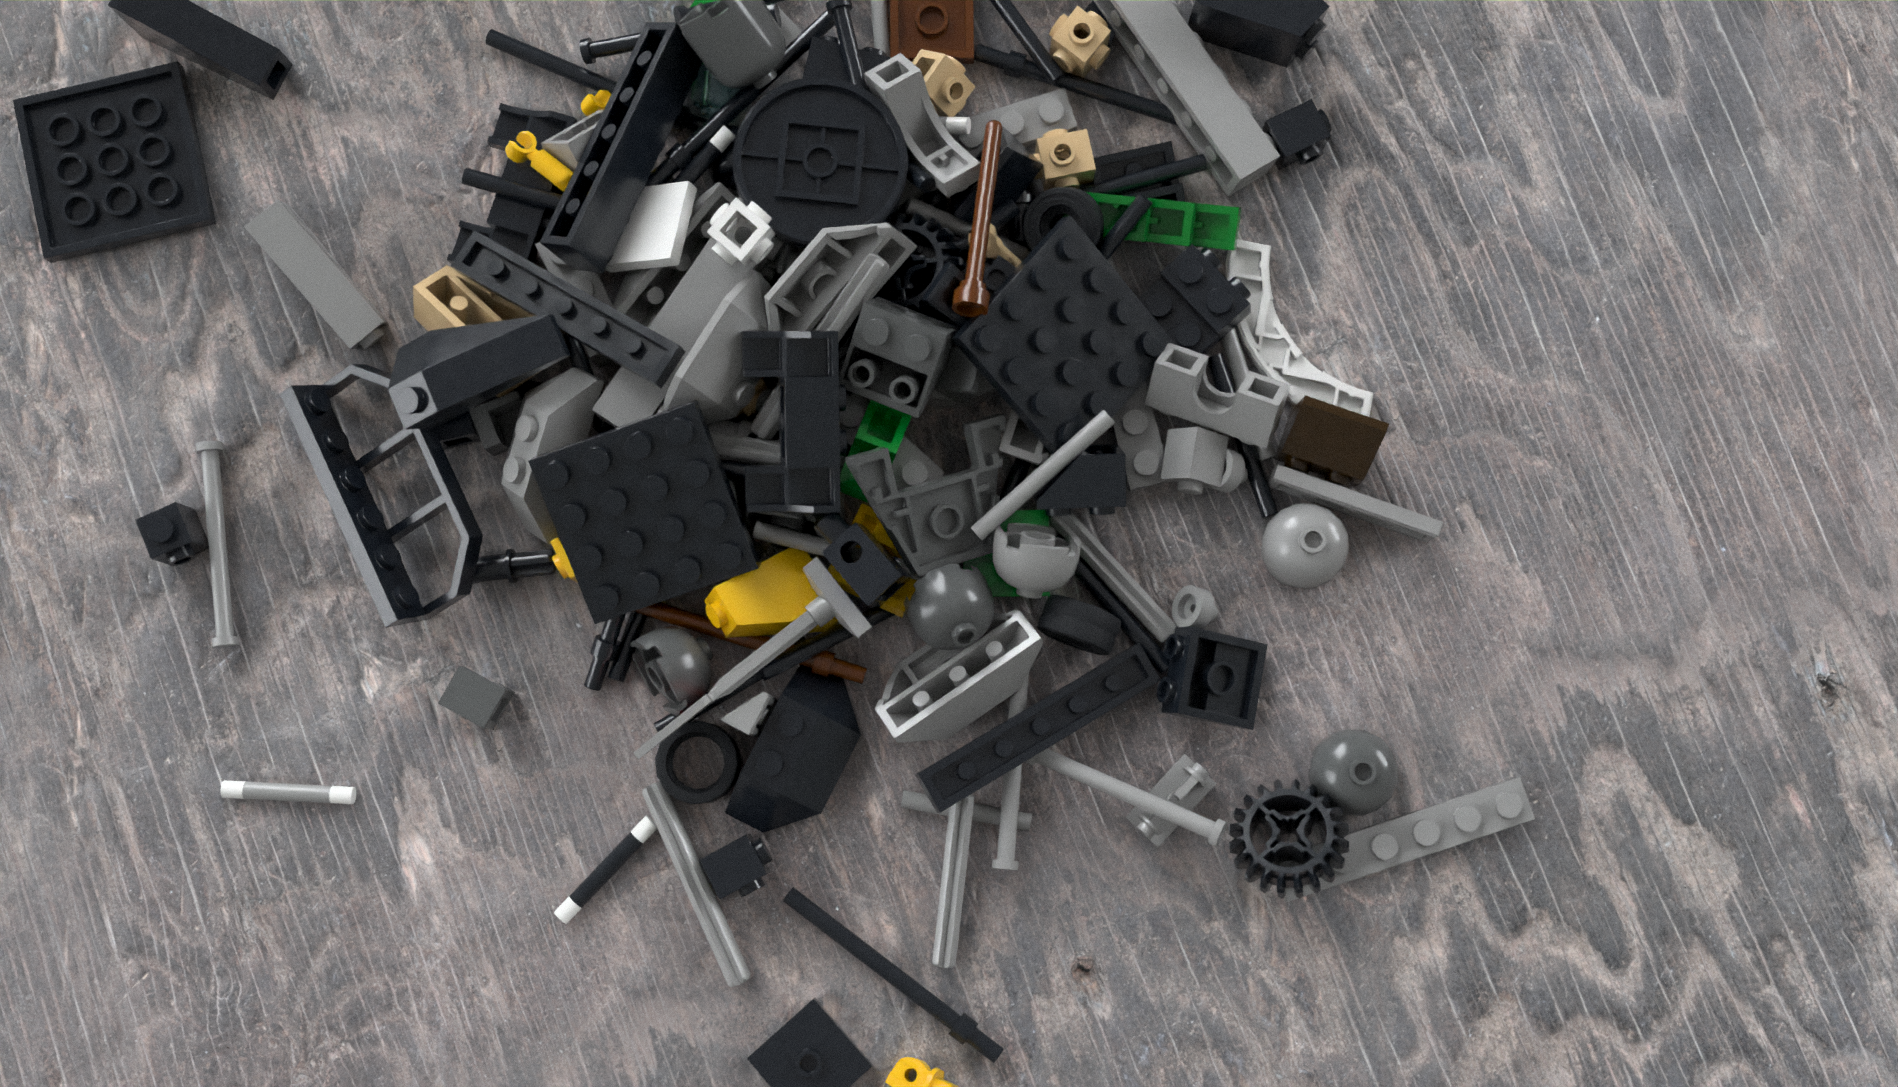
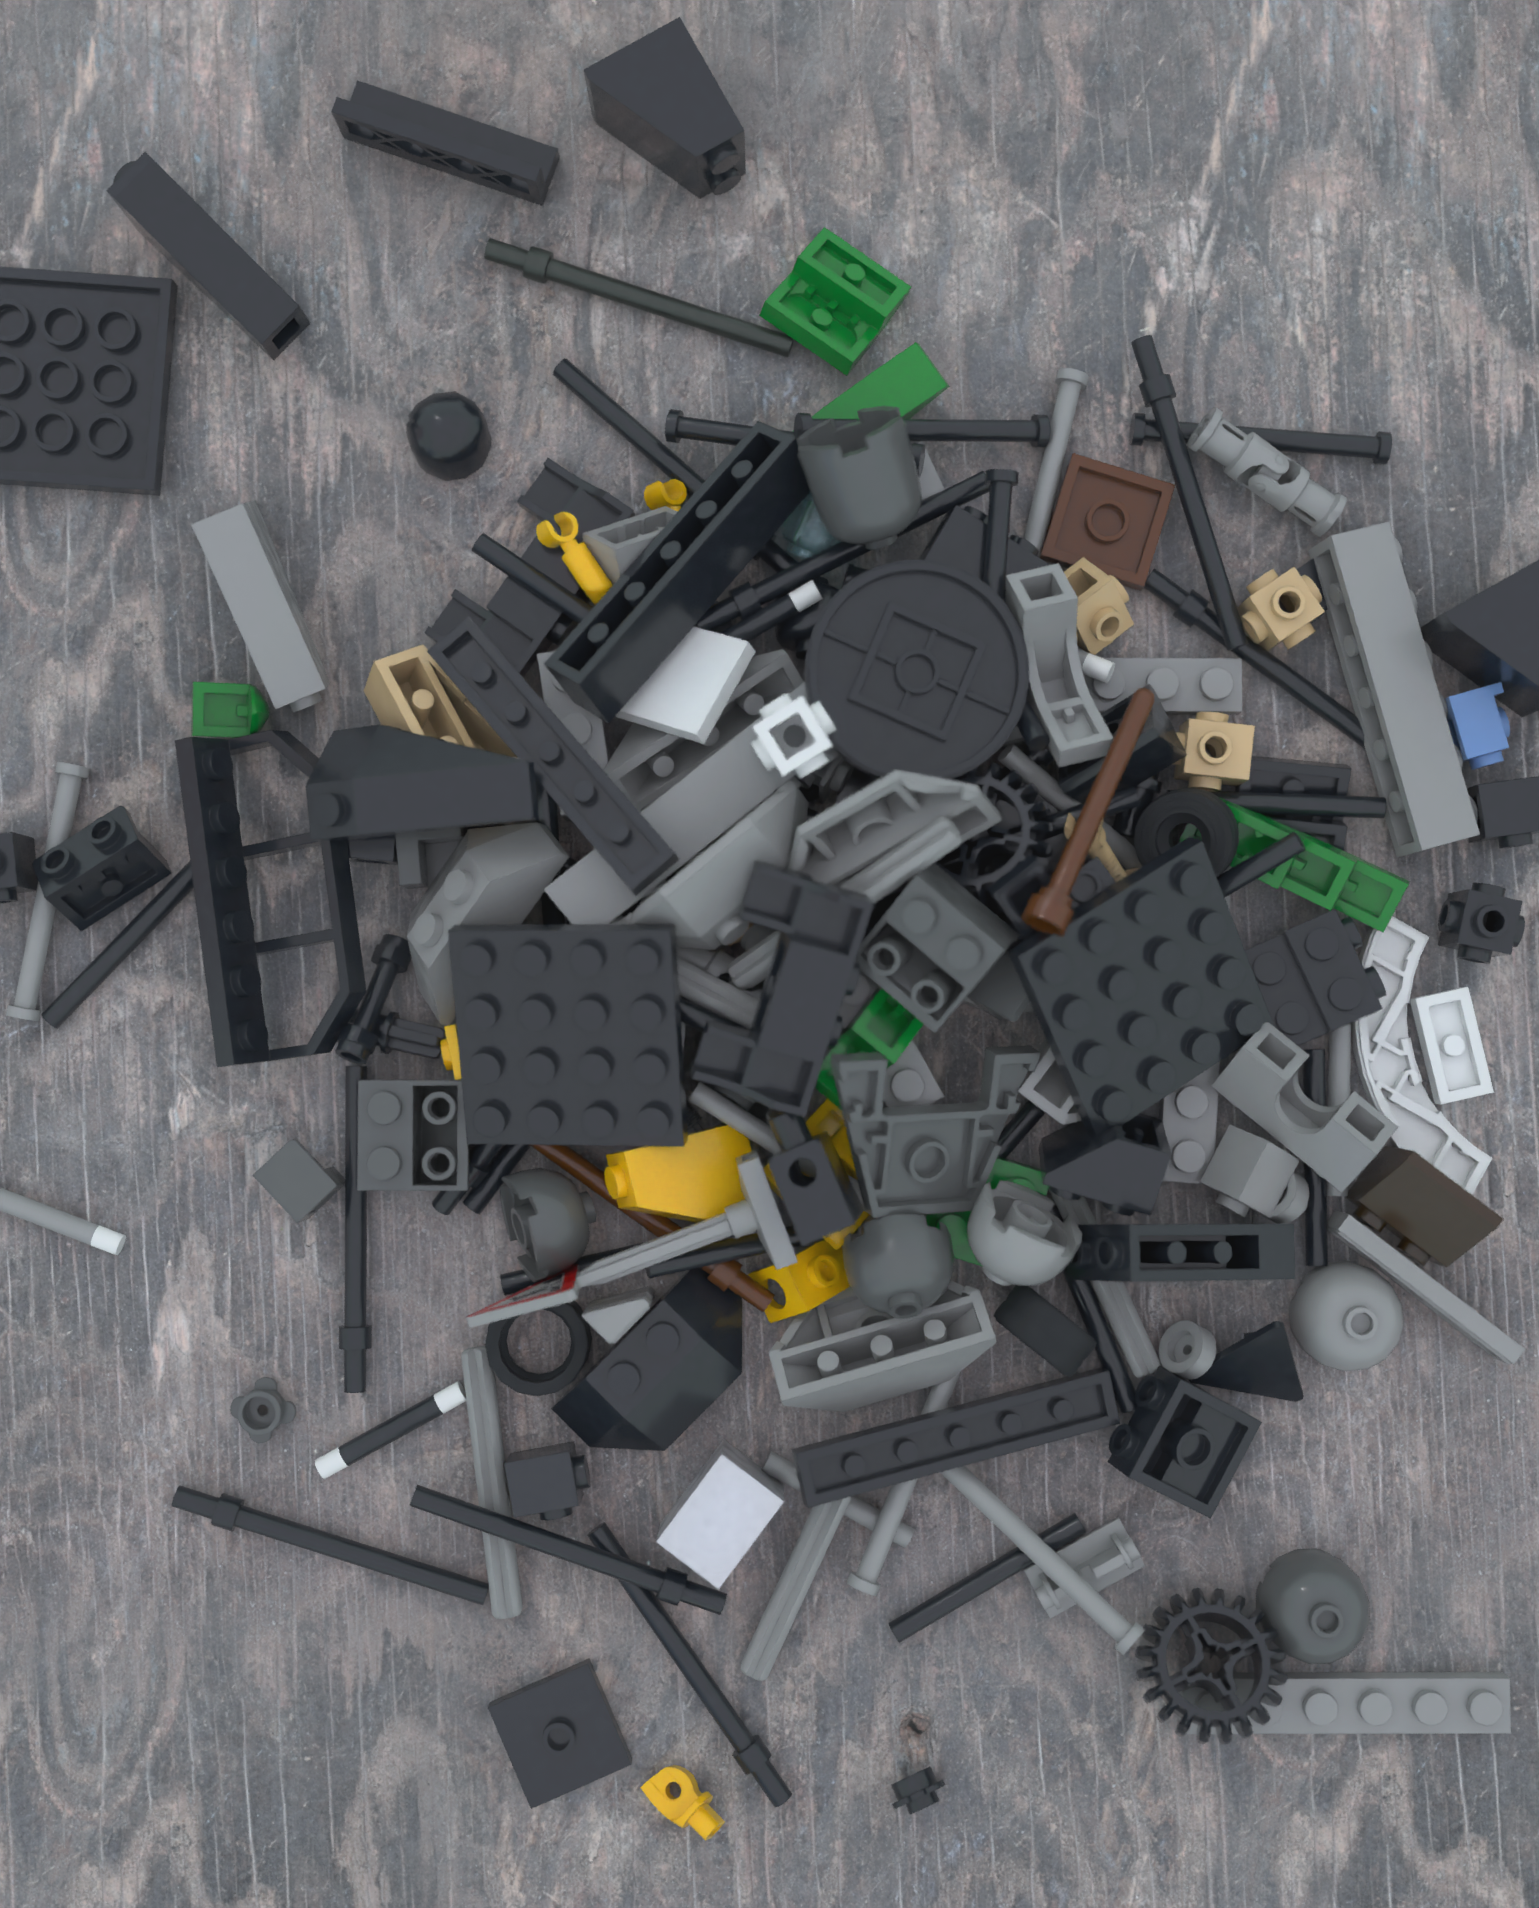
camera: 20 degrees right, 5 degrees up
(252, 512) = (99, 869): none -> black bracket
(286, 569) = (120, 948): none -> black bar
(314, 362) = (227, 709): none -> green plate
(421, 112) = (448, 435): none -> black hair
(487, 573) = (357, 1040): none -> black bar
(489, 889) = (247, 1410): none -> dark grey plate
(500, 973) = (230, 1513): none -> black bar
(551, 635) = (411, 1135): none -> dark grey slope
(555, 804) = (354, 1334): none -> black bar
(858, 916) = (668, 1584): none -> black bar
(877, 846) = (720, 1514): none -> flat silver piece
(887, 648) = (806, 1283): none -> yellow bracket
(1042, 474) = (1063, 1144): light grey bar -> none
(1096, 837) = (981, 1581): none -> black bar
(1098, 1012) = (917, 1790): none -> black plate
(1162, 532) = (1184, 1252): none -> black slope
(1249, 602) = (1257, 1366): none -> black piece
(1253, 80) = (1479, 725): none -> medium blue brick
(1297, 233) = (1463, 923): none -> black brick
(1314, 319) = (1451, 1045): none -> white plate

